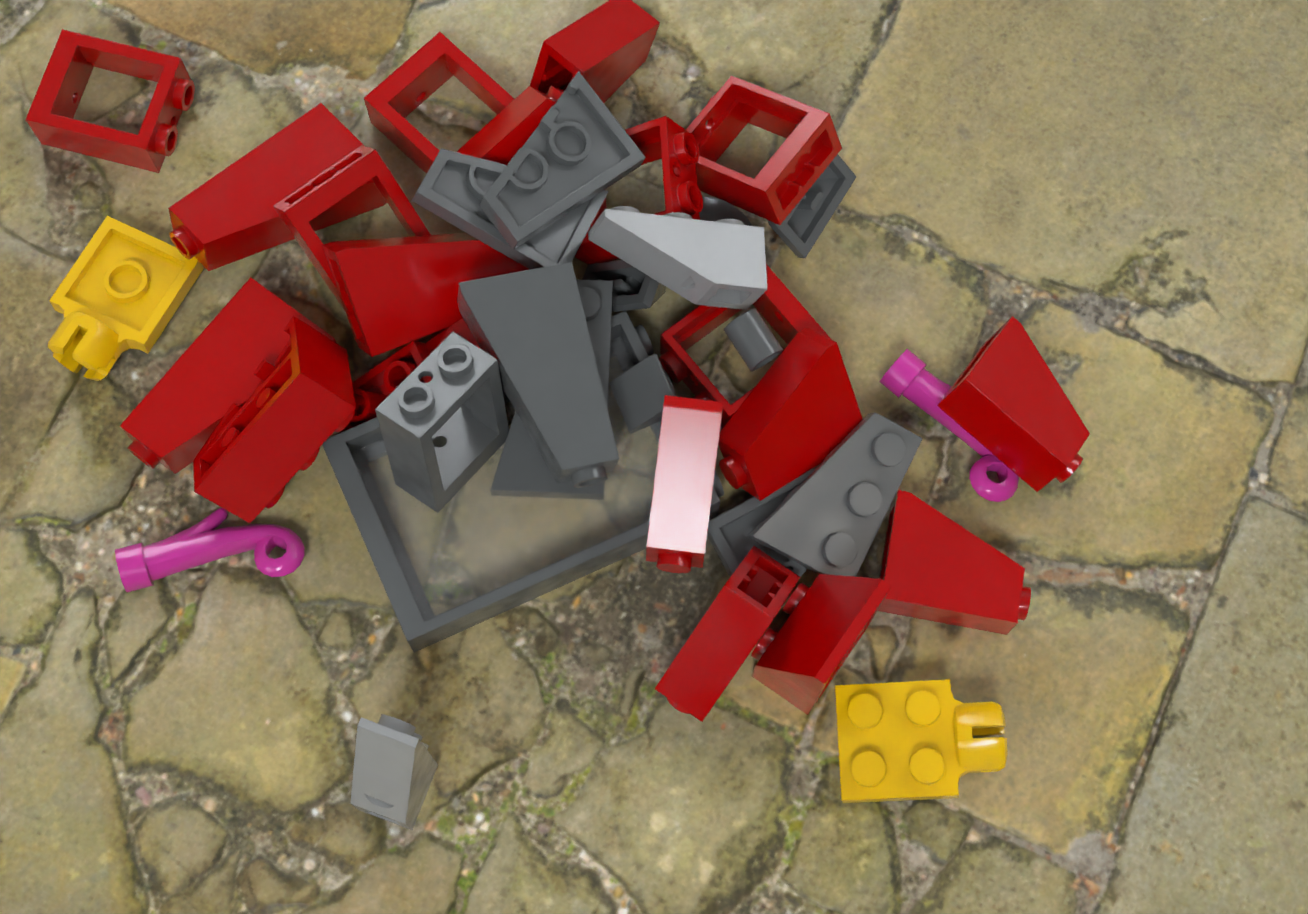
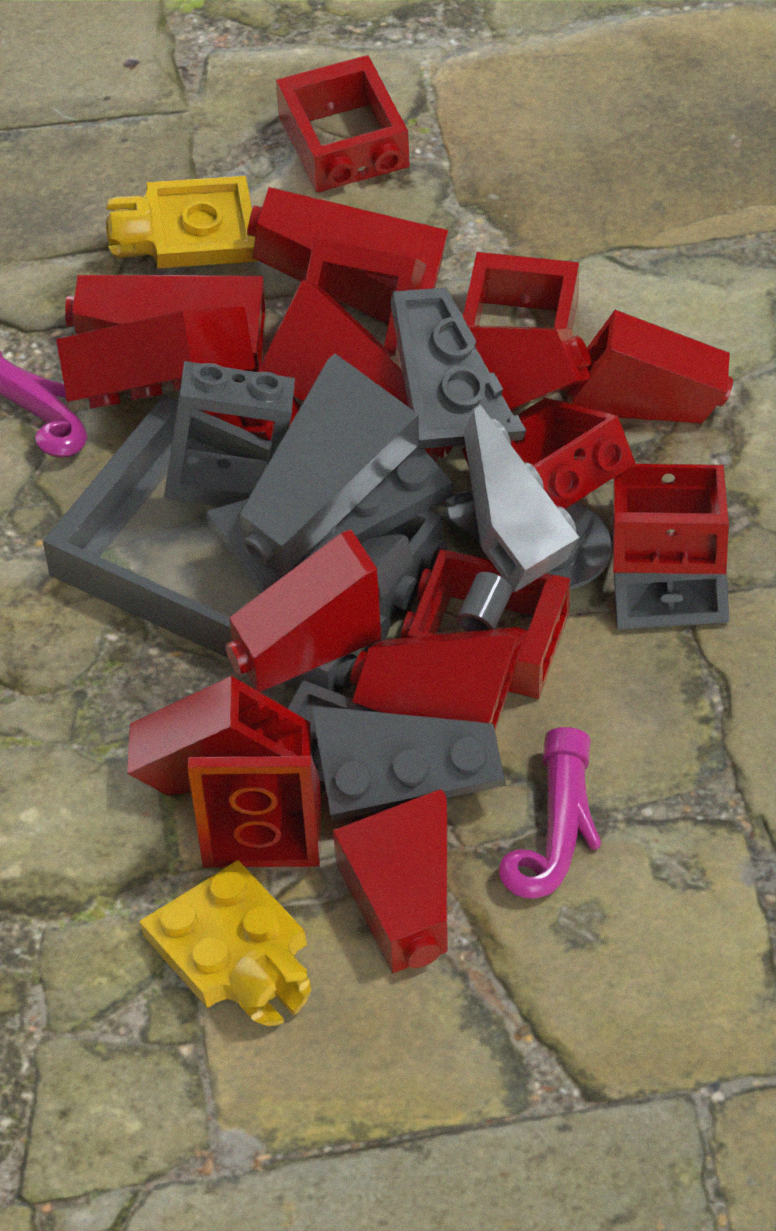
camera: 60 degrees right, 20 degrees down
(561, 165) = (508, 374): dark grey wing -> none
(1018, 408) = (598, 836): red slope -> none

